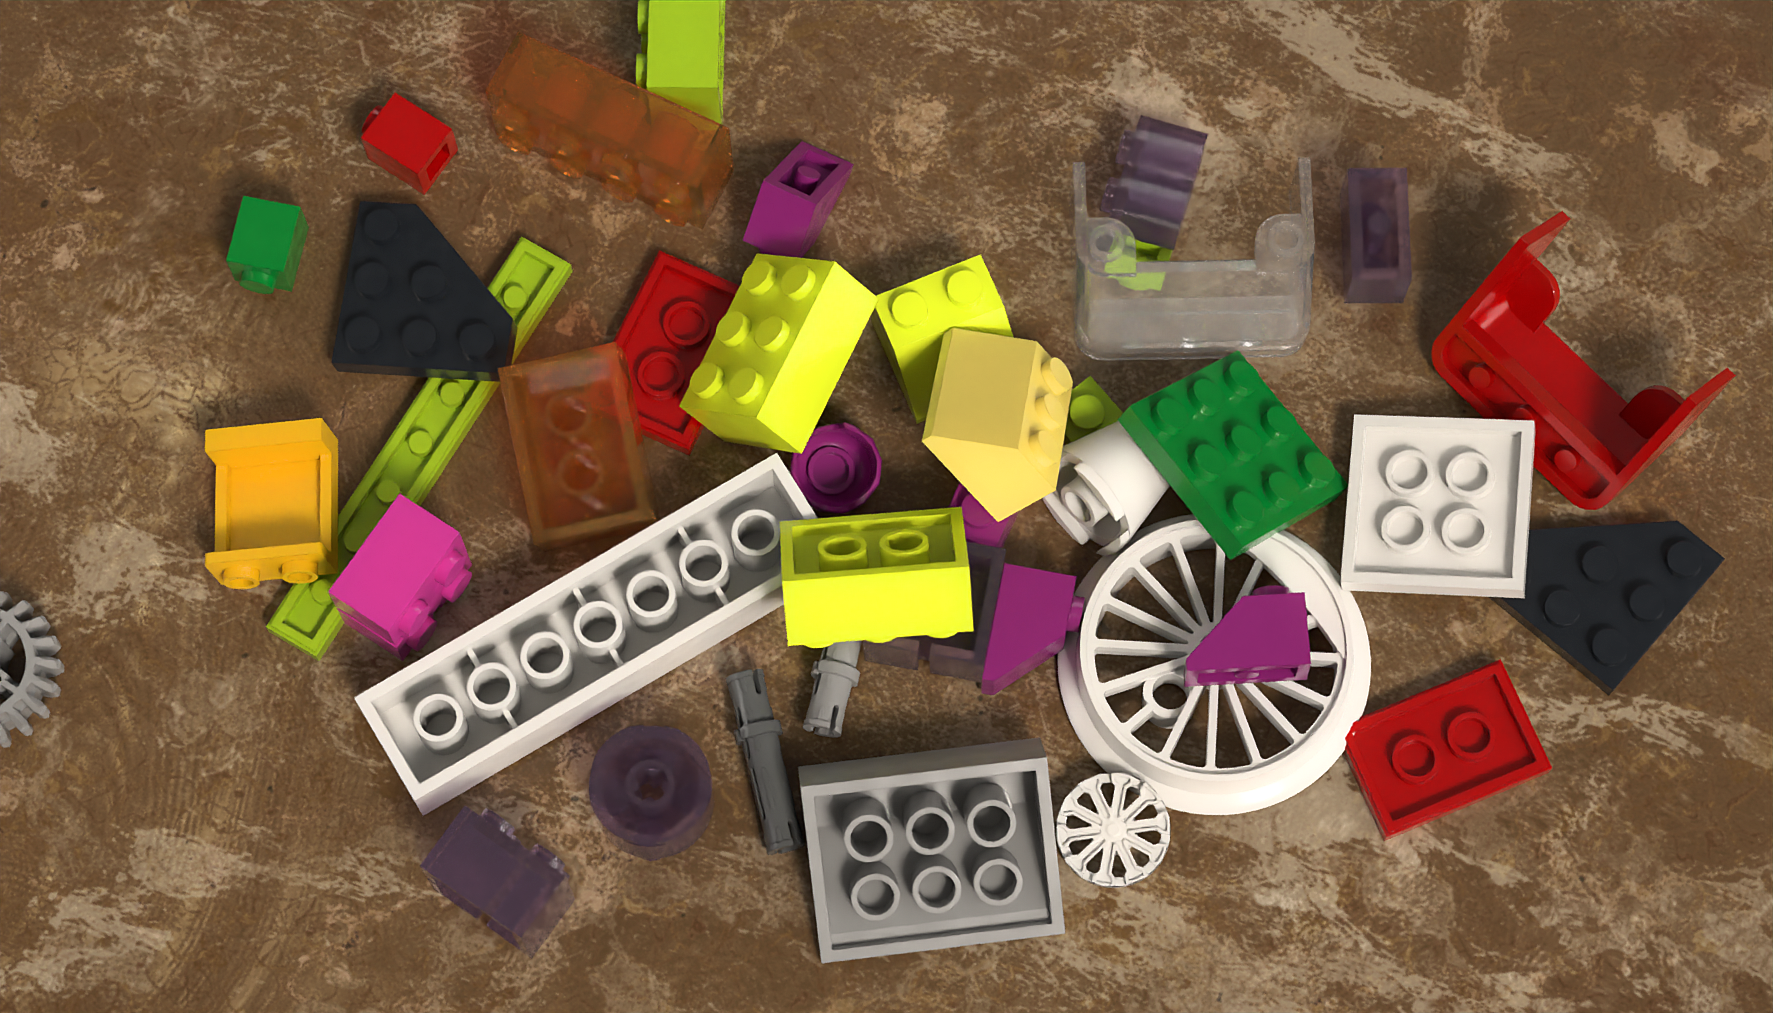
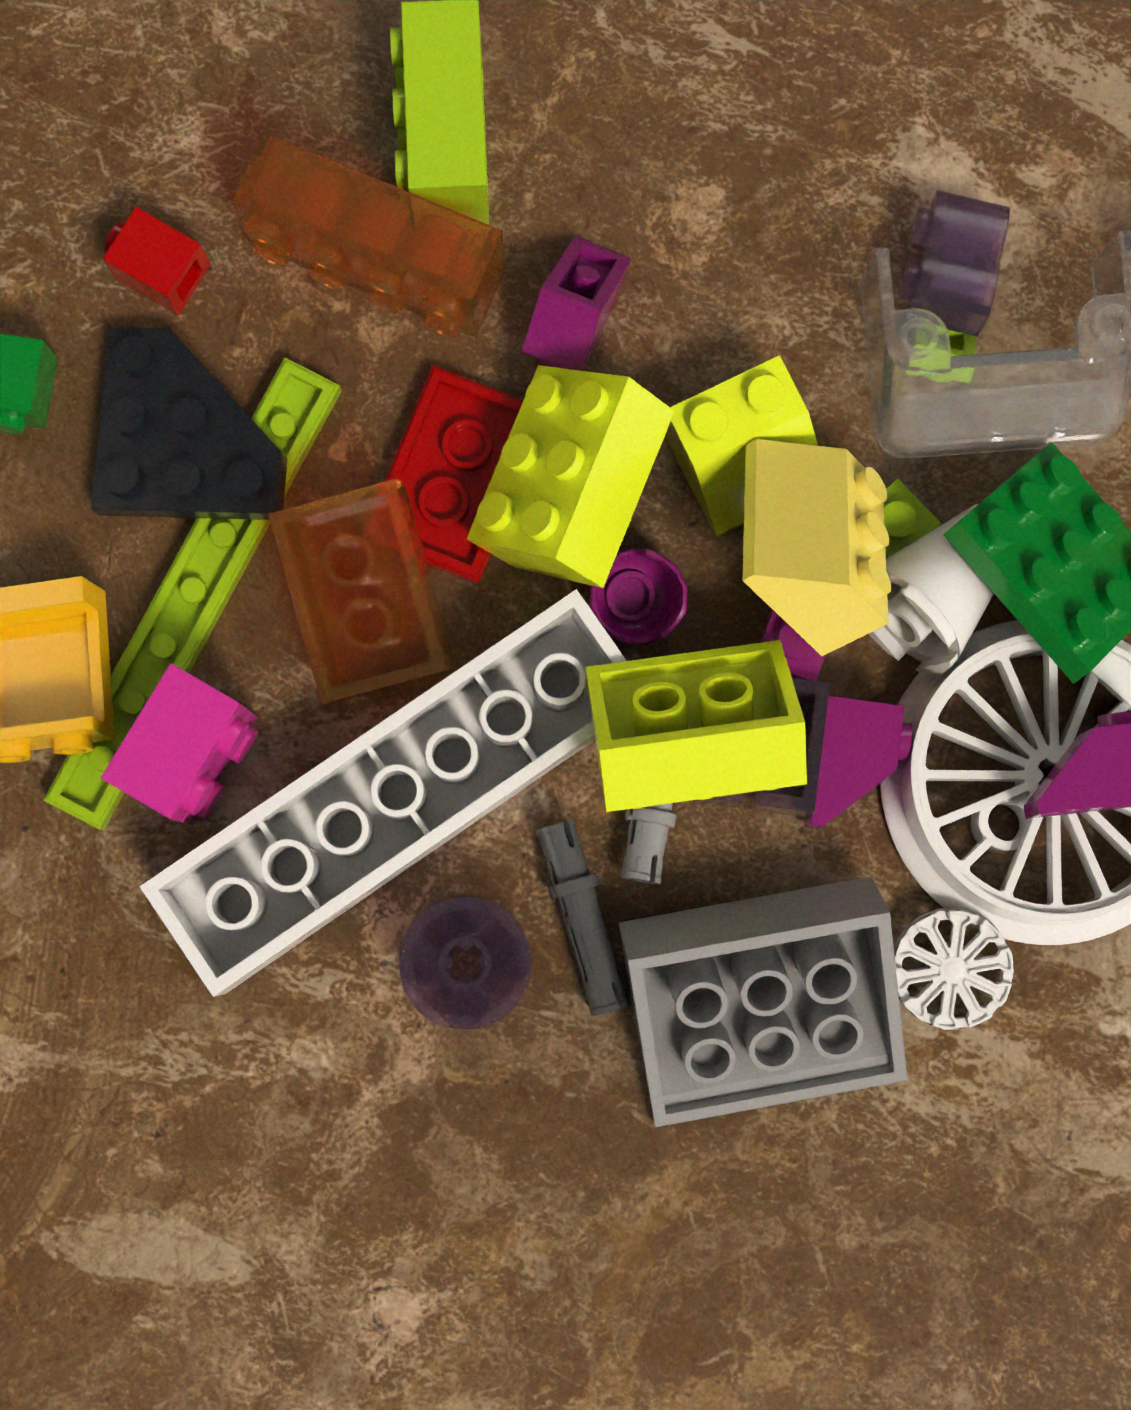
camera: 10 degrees left, 10 degrees up
(490, 872) = (309, 1072): clear purple piece -> none

